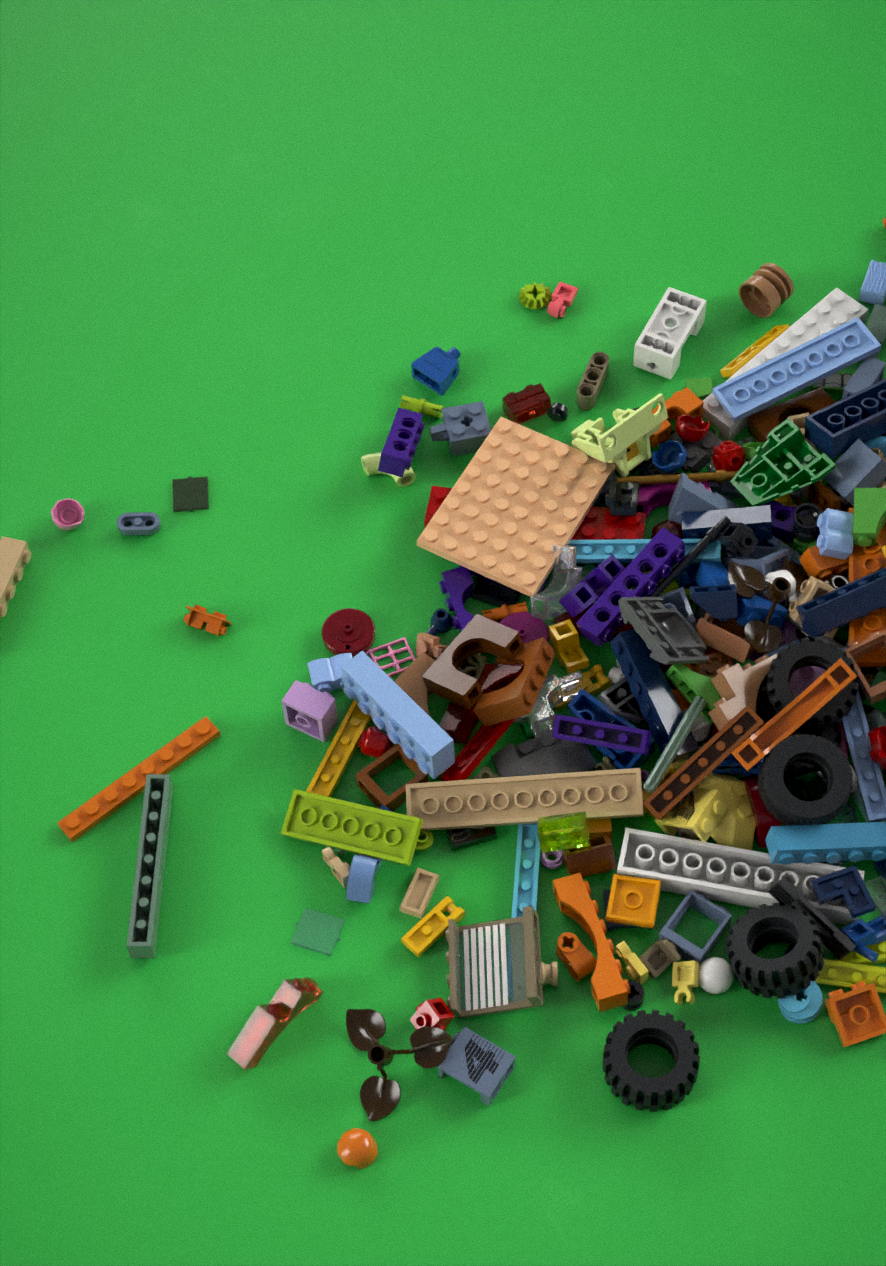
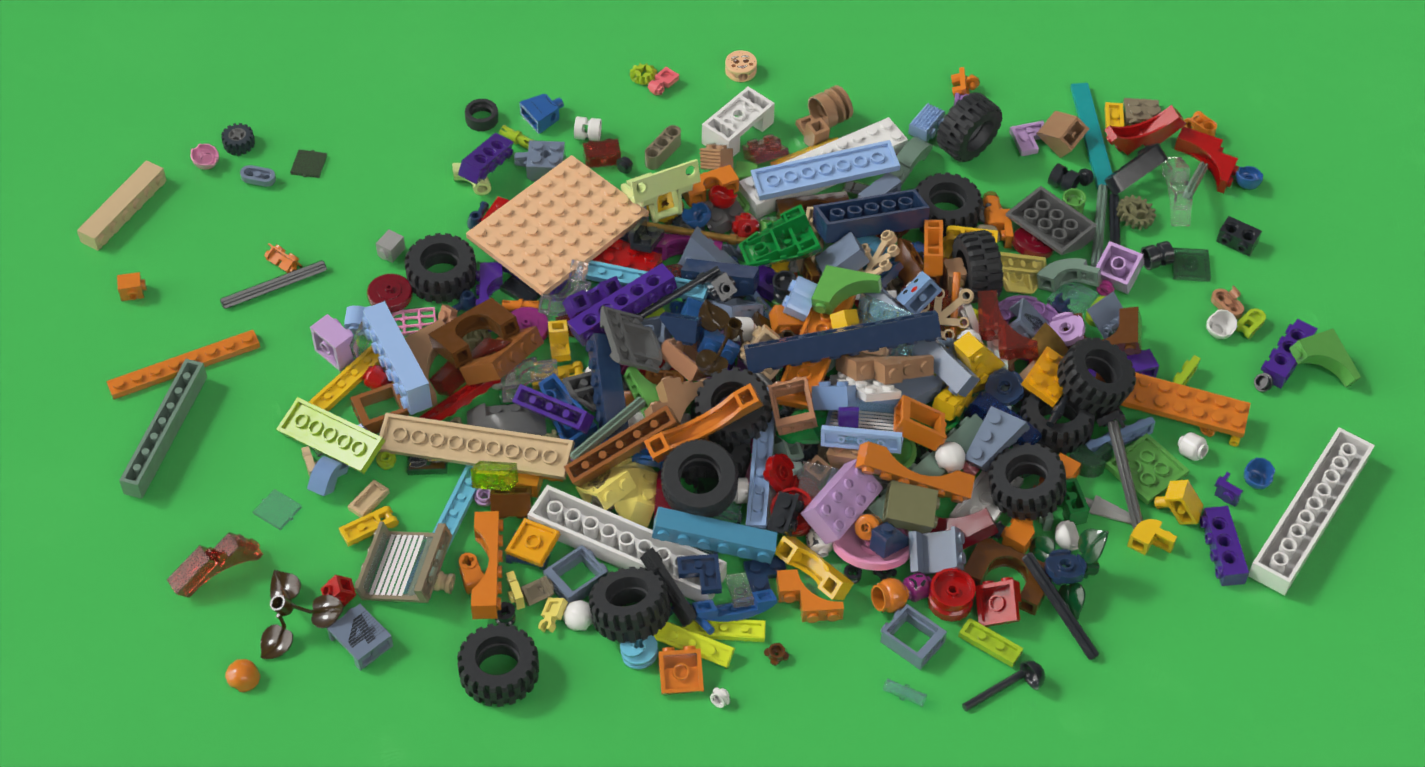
camera: 10 degrees right, 5 degrees down
(42, 697) = (131, 286): none -> orange brick
(97, 483) = (238, 139): none -> black wheel
(207, 654) = (273, 284): none -> axle
(328, 575) = (390, 246): none -> light grey brick
(340, 702) = (359, 342): none -> clear piece
(373, 400) = (477, 106): none -> black tyre
(393, 566) = (440, 250): none -> black tyre
(415, 524) = (476, 216): none -> dark blue bar
(507, 377) = (594, 128): none -> white wheel
(643, 261) = (741, 66): none -> light nougat head
(662, 380) = (716, 156): none -> medium nougat brick
(710, 358) = (764, 150): none -> clear red plate
(755, 323) = (813, 130): none -> medium nougat brick

